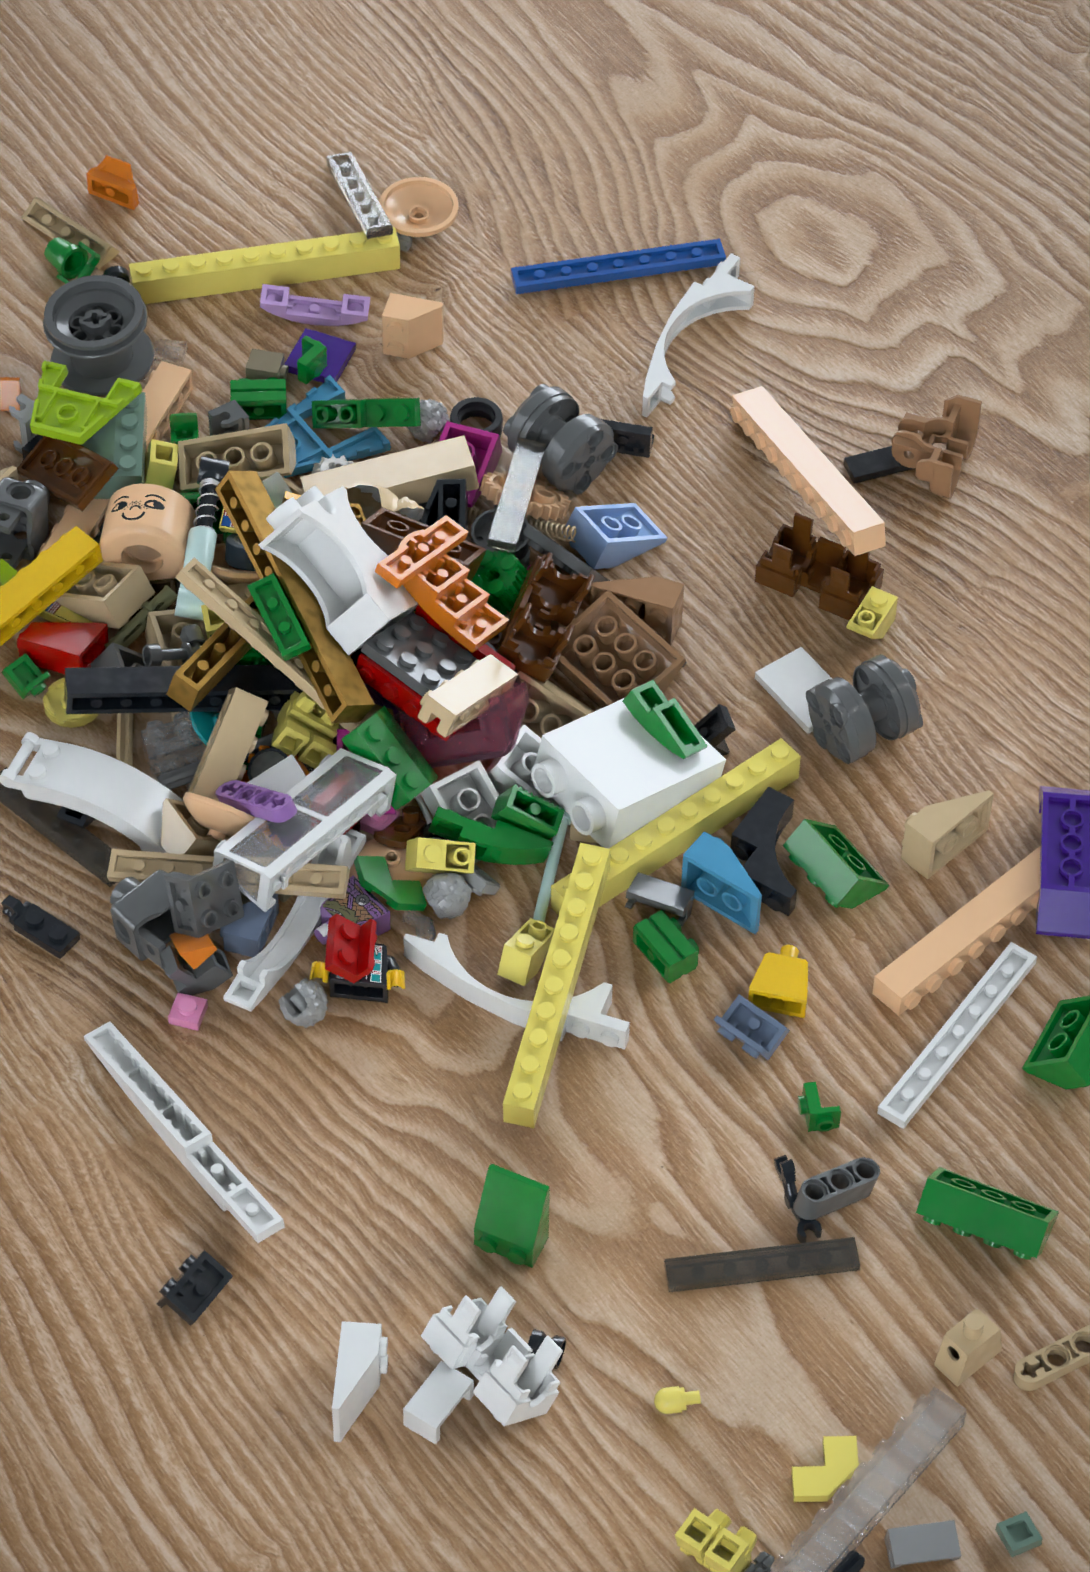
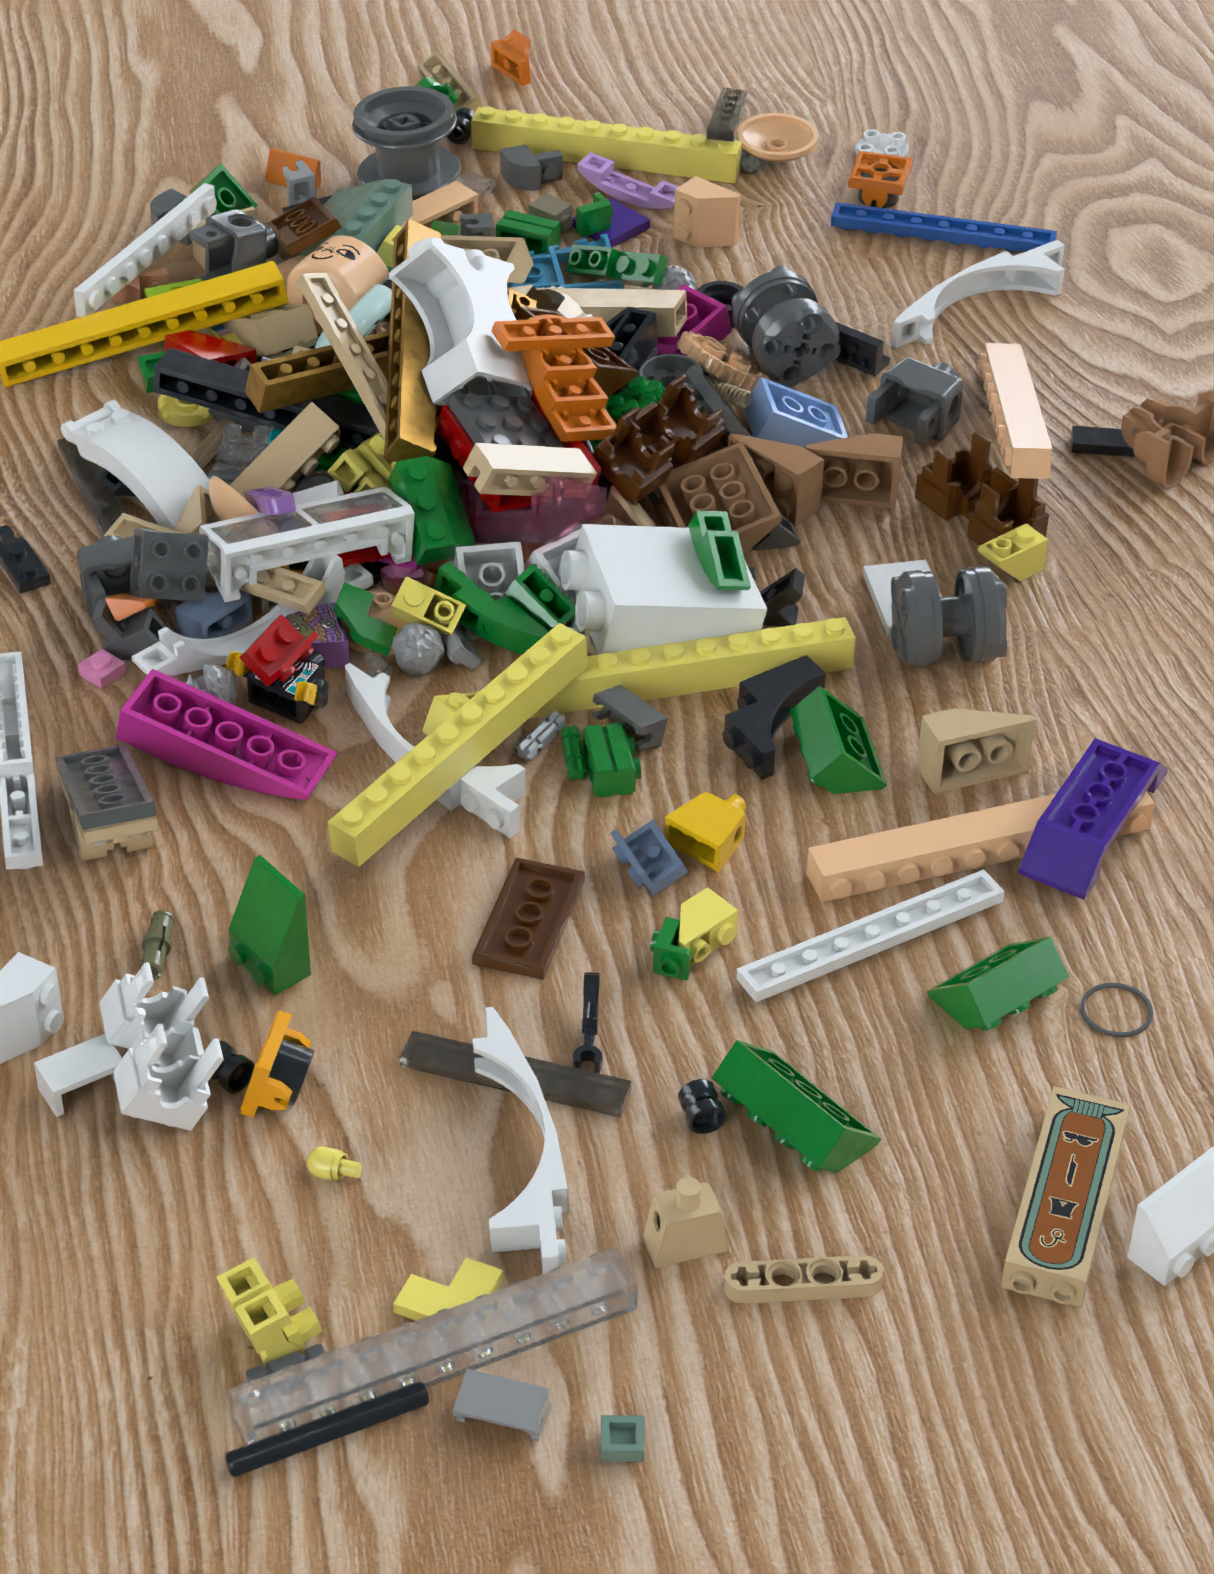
camera: 25 degrees right, 10 degrees down
(73, 414) = (333, 181): lime wing -> none
(207, 320) = (527, 170): none -> dark grey brick
(279, 617) = (381, 349): green plate -> none
(303, 1148) = (106, 801): none -> dark grey piece
(345, 1048) = (220, 739): none -> dark pink slope
(415, 1260) = (157, 942): none -> olive pin
(510, 183) = (883, 143): none -> white dish
(516, 495) = (699, 345): clear smoke tile -> none
(536, 232) = (881, 178): none -> orange piece
(594, 946) = (541, 736): none -> light grey axle
(599, 1336) = (279, 1068): none -> light orange piece
(629, 948) = (573, 752): none -> green axle
(687, 1119) = (528, 918): none -> reddish brown tile
(710, 476) = (918, 398): none -> dark grey piece
(710, 573) = (861, 469): none -> medium nougat slope
(721, 881) = (697, 715): dark azure slope -> none
(832, 1073) = (706, 924): none -> light yellow slope
(836, 1188) = (638, 1025): dark grey beam -> none
(858, 1381) = (538, 1210): none -> white slope
(920, 1238) = (702, 1106): none -> black wheel

